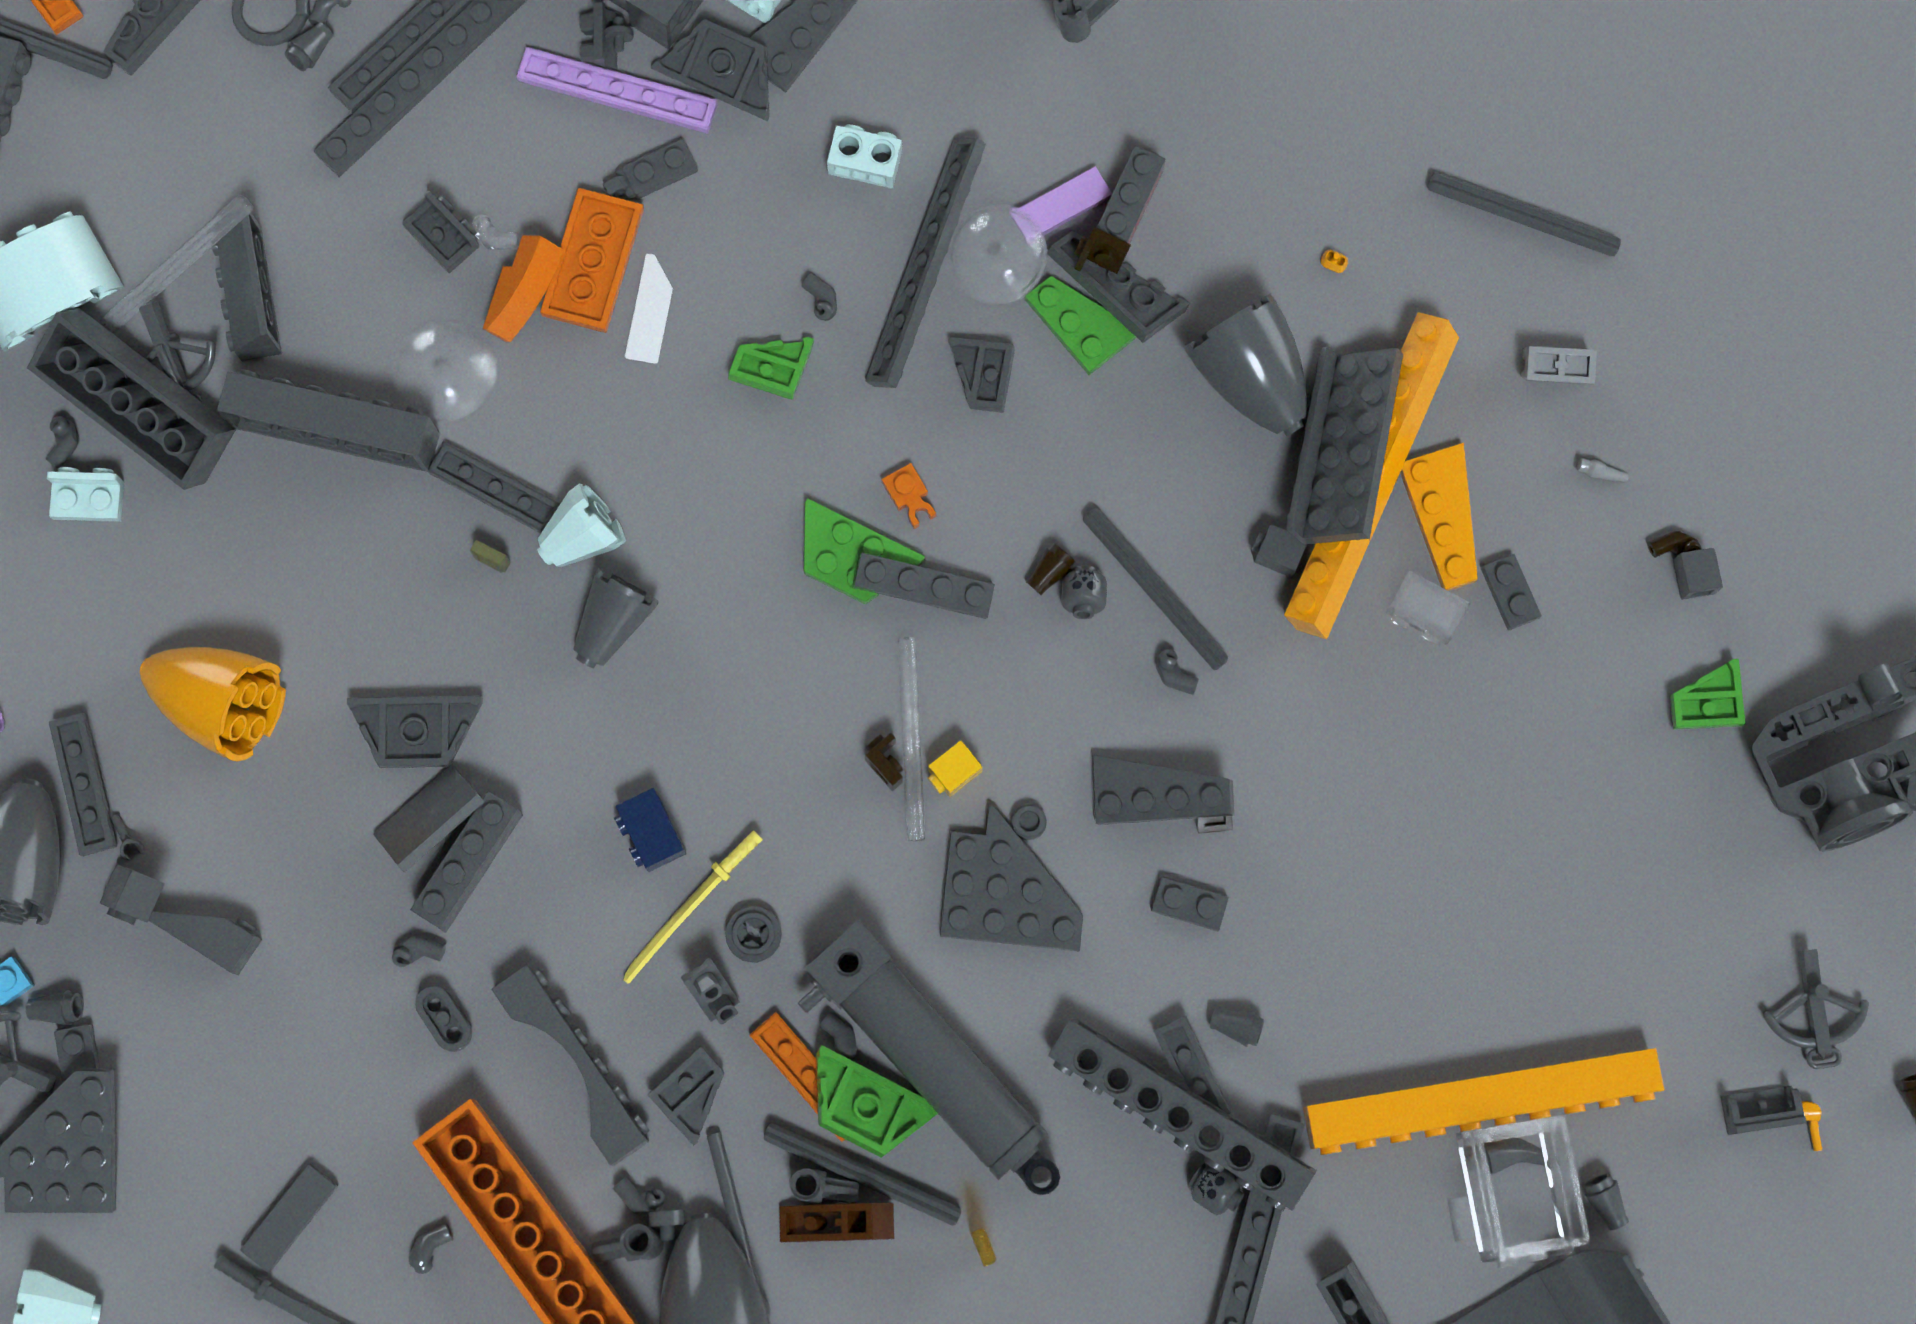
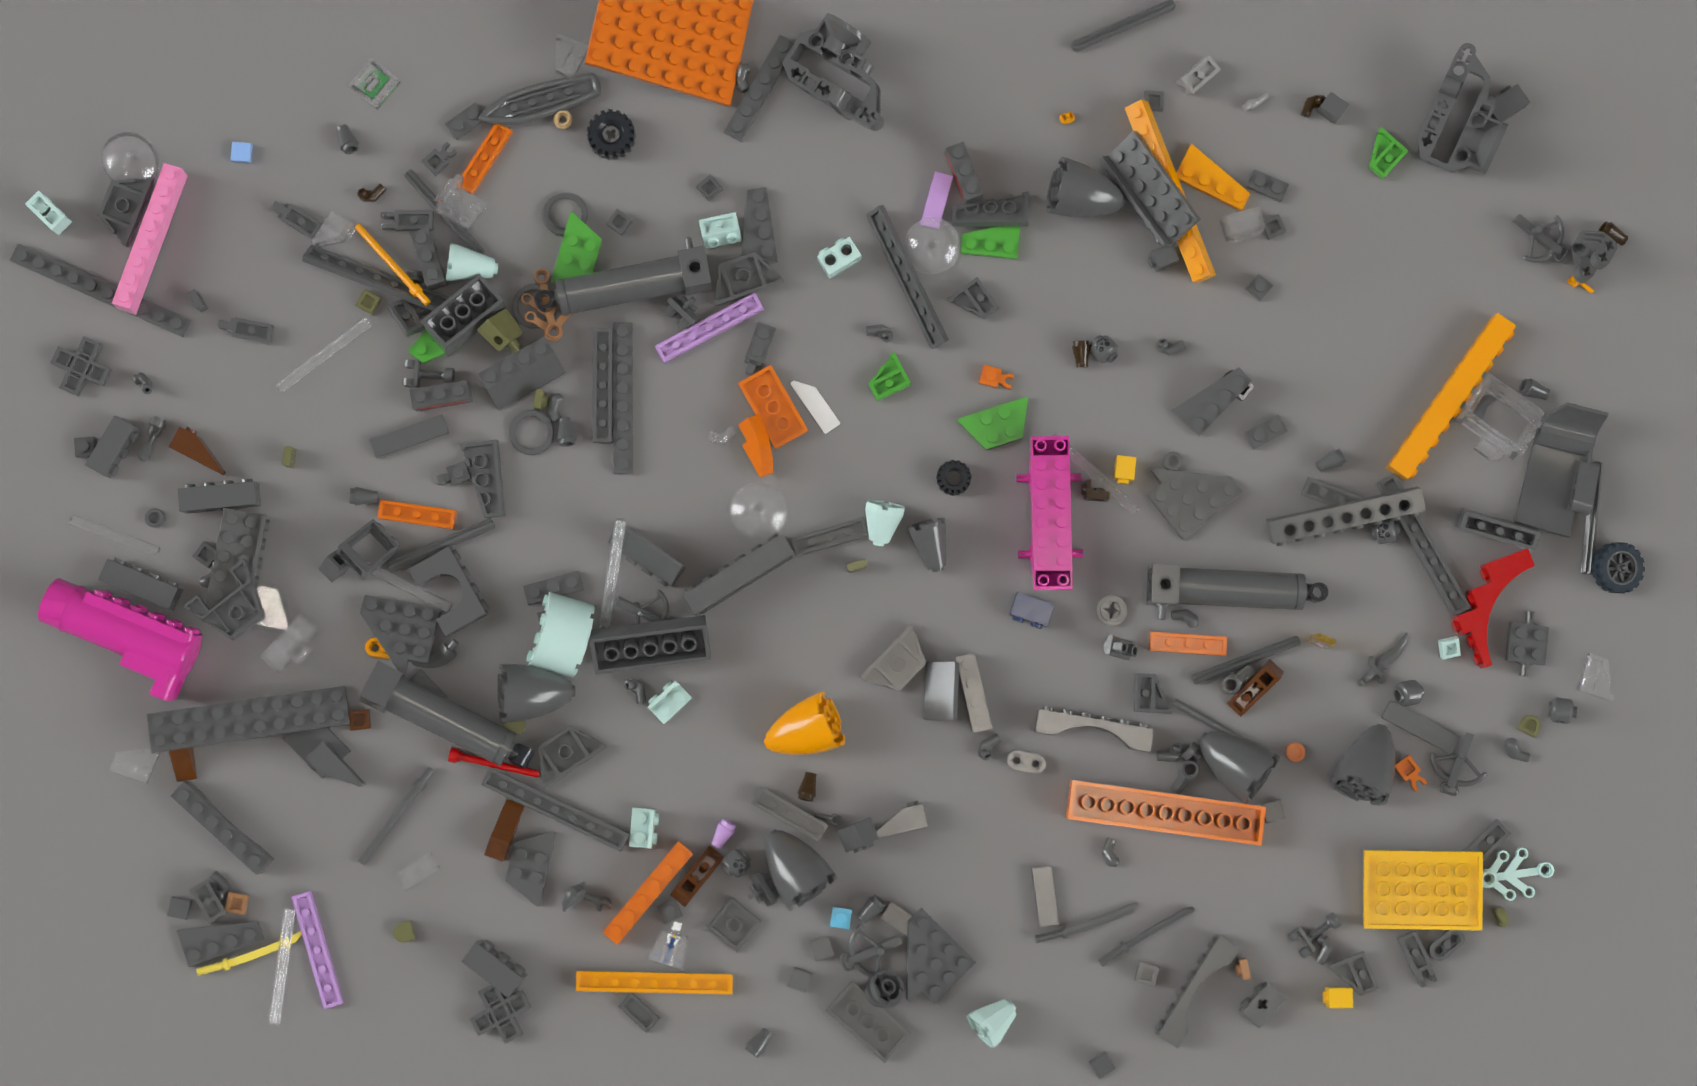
camera: 45 degrees left, 5 degrees up
(105, 222) = (560, 585): none -> dark grey plate
(139, 773) = (807, 789): none -> dark brown cone
(441, 232) = (701, 455): dark grey bracket -> none
(720, 873) = (1075, 624): light yellow sword -> none
(726, 546) = (953, 466): none -> black tyre
(798, 730) = (1050, 513): none -> dark pink piece
(866, 1105) = (1222, 632): bright green wing -> none
(923, 585) = (1039, 408): dark grey plate -> none
(1102, 250) = (975, 203): dark brown bracket -> none
(1155, 589) = (1129, 320): dark grey axle -> none
(1369, 710) = (1259, 287): none -> dark grey plate
(1466, 651) = (1274, 227): none -> dark grey tile
(1471, 345) = (1155, 100): none -> dark grey tile
(1762, 1110) = (1558, 296): dark grey hinge -> none
(1861, 1093) = (1583, 254): none -> dark grey piece

